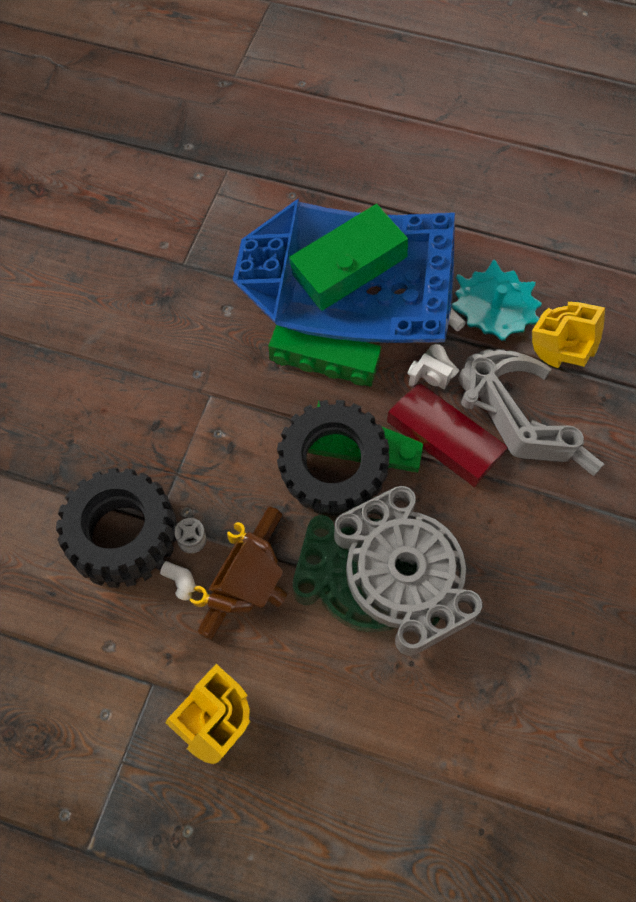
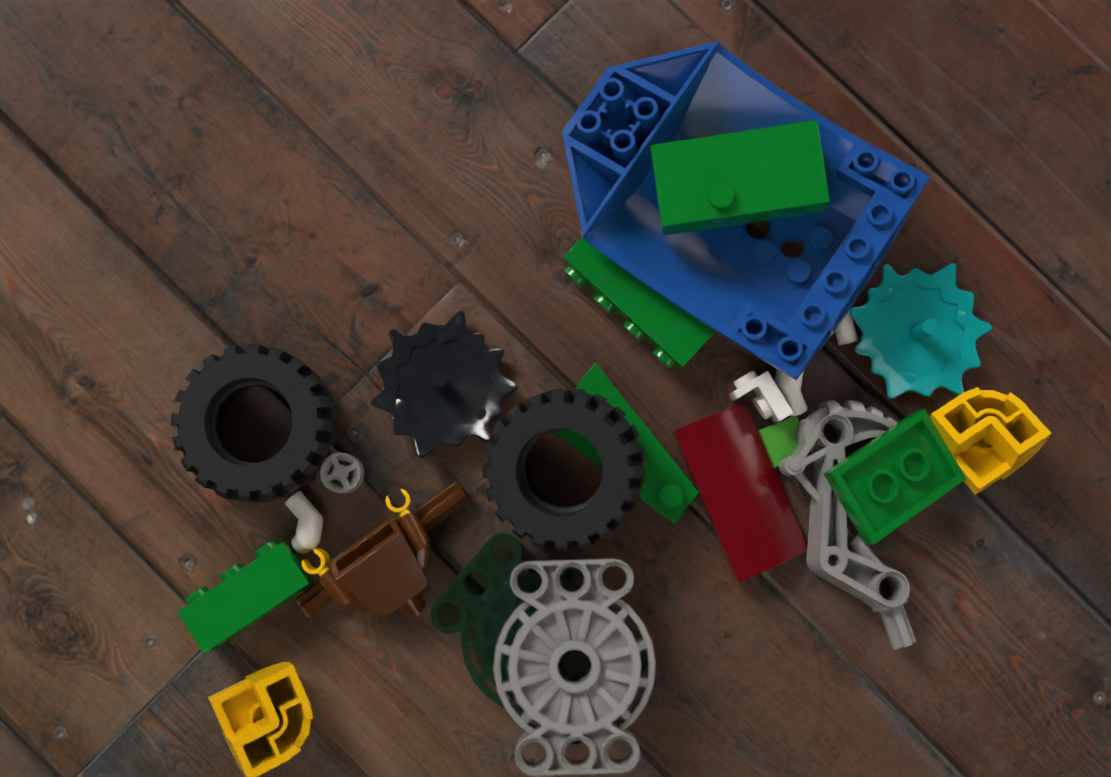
camera: 25 degrees right, 20 degrees up
(160, 643) = (244, 595): none -> green brick
(229, 454) = (442, 384): none -> black piece
(453, 393) = (780, 439): none -> bright green tile
(532, 374) = (894, 476): none -> green plate

